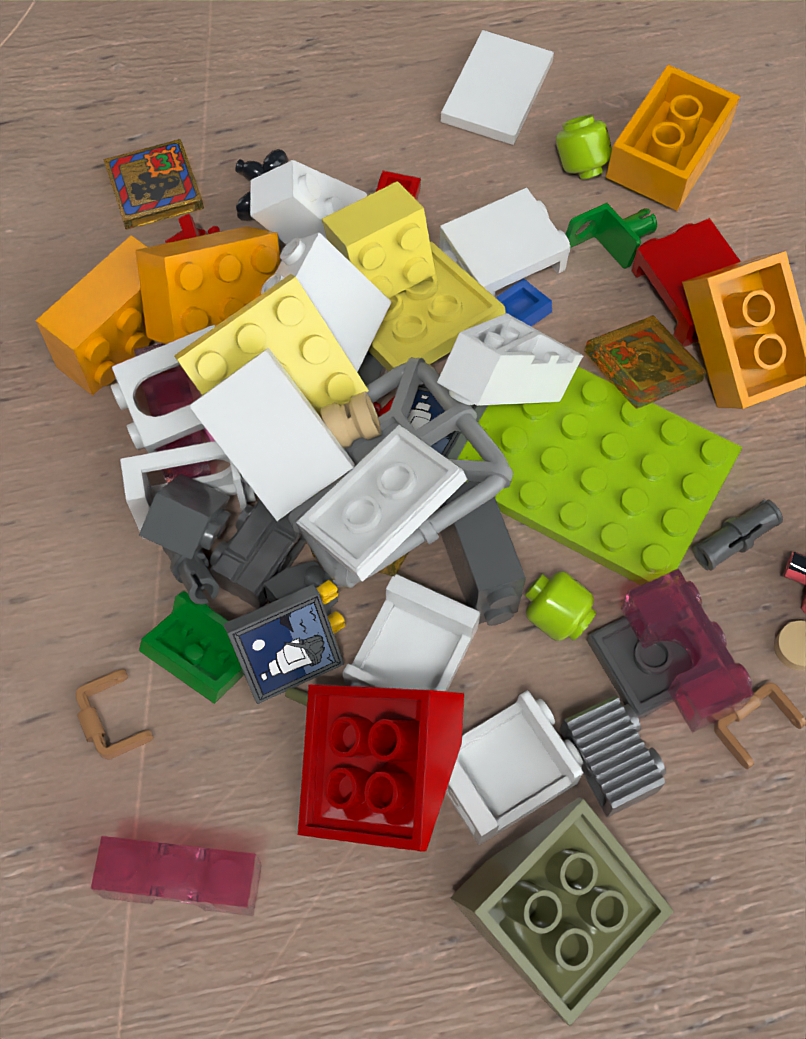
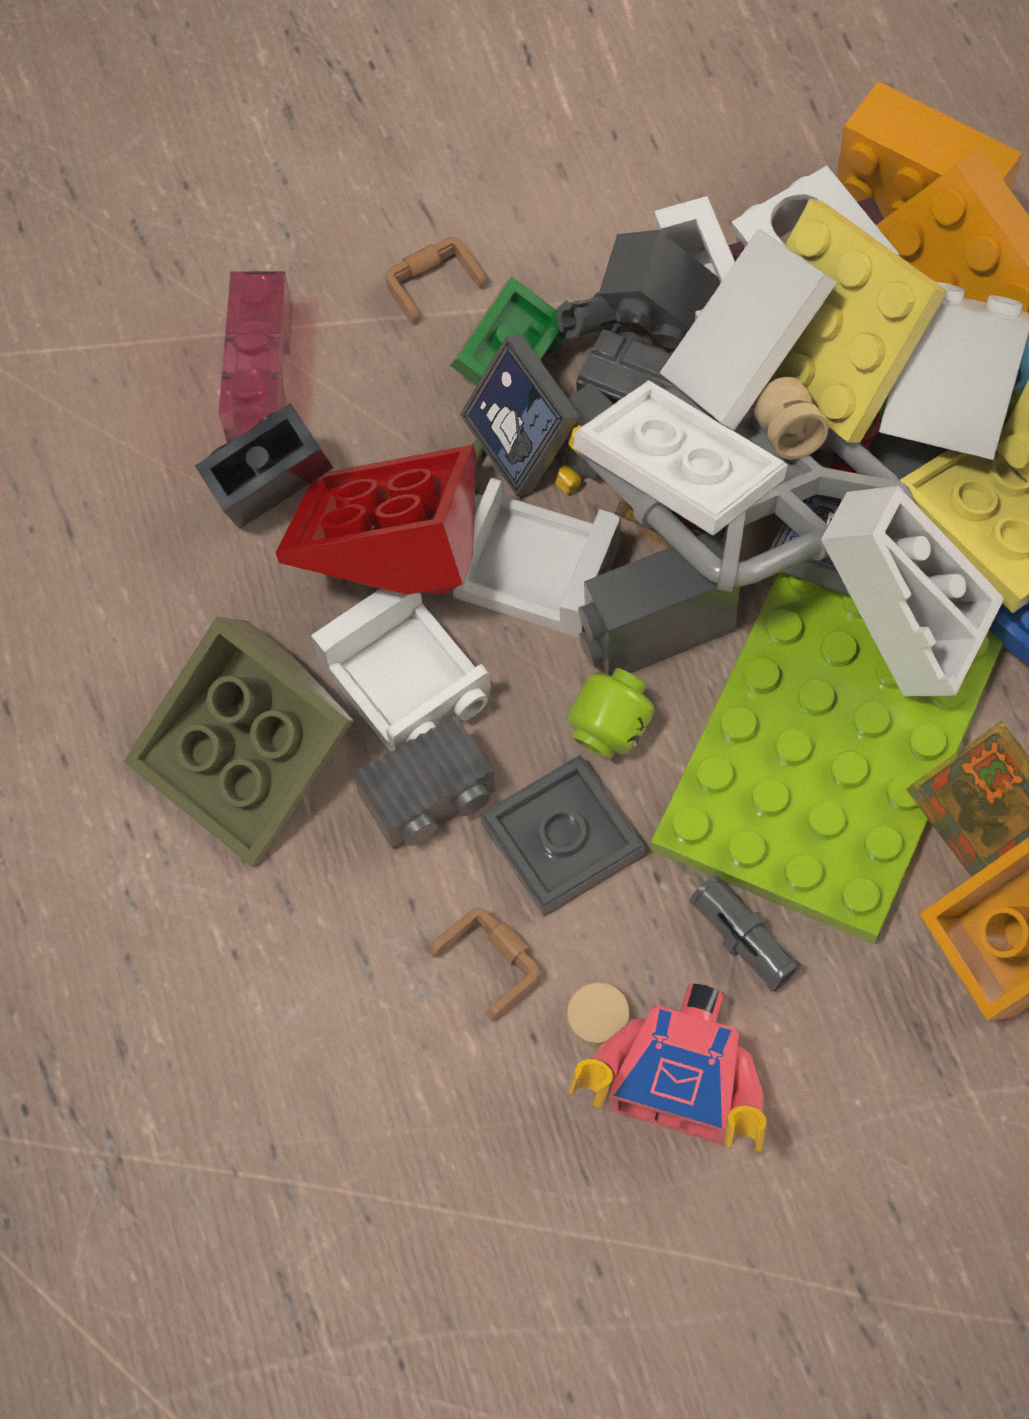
camera: 90 degrees right, 0 degrees up
(303, 871) = (263, 466): none -> black brick
(673, 612) = (521, 883): clear pink arch -> none

